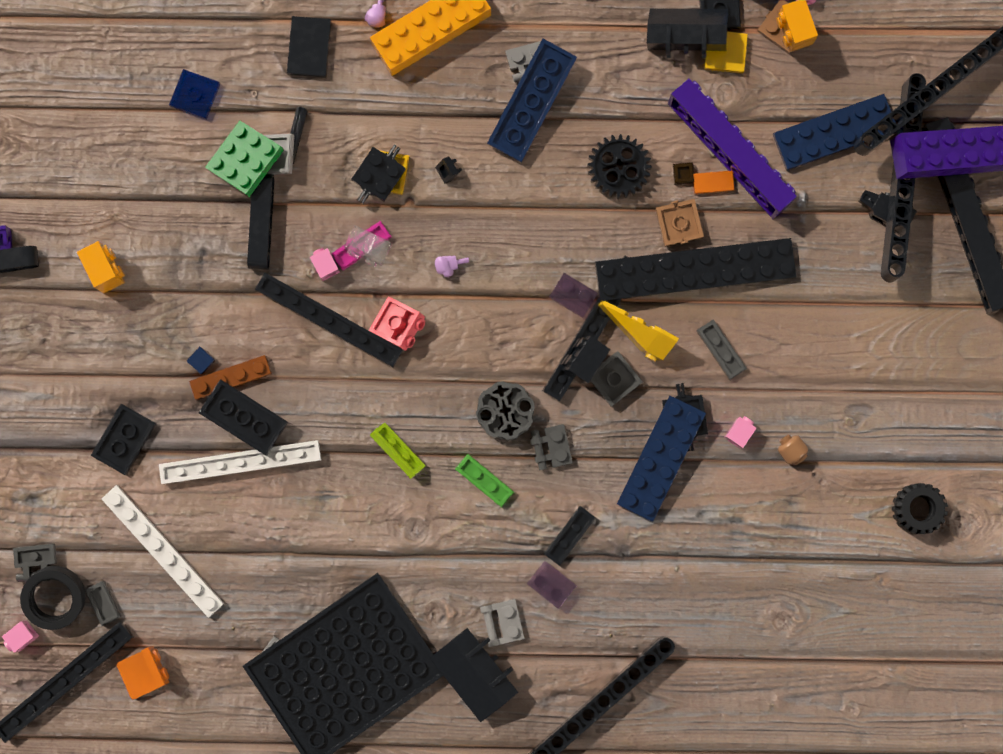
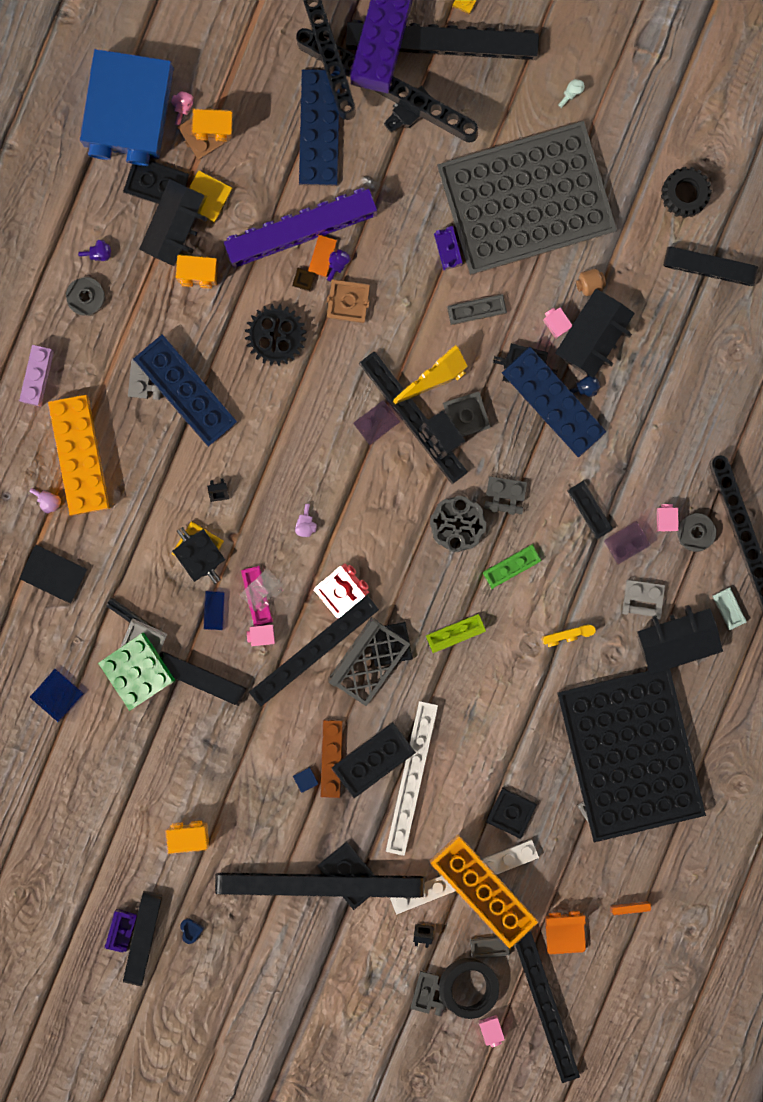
camera: 75 degrees left, 5 degrees up
(14, 307) = (191, 930): none -> dark blue tile
(90, 532) = (423, 934): none -> black tile
(102, 413) = (319, 885): none -> black beam
(152, 574) = (483, 891): none -> light orange brick
(191, 728) = (630, 908): none -> orange tile
(242, 573) = (511, 813): none -> black tile
(331, 210) = (214, 610): none -> clear blue tile
(336, 359) = (353, 654): none -> dark grey fence
(363, 391) = (399, 629): none -> black tile
(438, 563) = (569, 635): none -> yellow hinge
(525, 712) = (729, 608): none -> light aqua tile
(591, 615) = (667, 518): none -> bright pink brick
(598, 656) = (702, 541): none -> dark grey plate
(651, 67) = (197, 271): none -> light orange brick
(690, 487) = (587, 386): none -> dark blue piece
(695, 269) = (396, 304): black plate -> none
(715, 198) = (338, 261): none -> dark purple piece
(744, 472) = (595, 333): none -> black piece
(769, 298) = (448, 248): none -> dark purple hinge
(849, 356) = (526, 198): none -> dark grey plate
(856, 562) = (710, 266): none -> black beam
(975, 360) = (574, 88): none -> light aqua piece

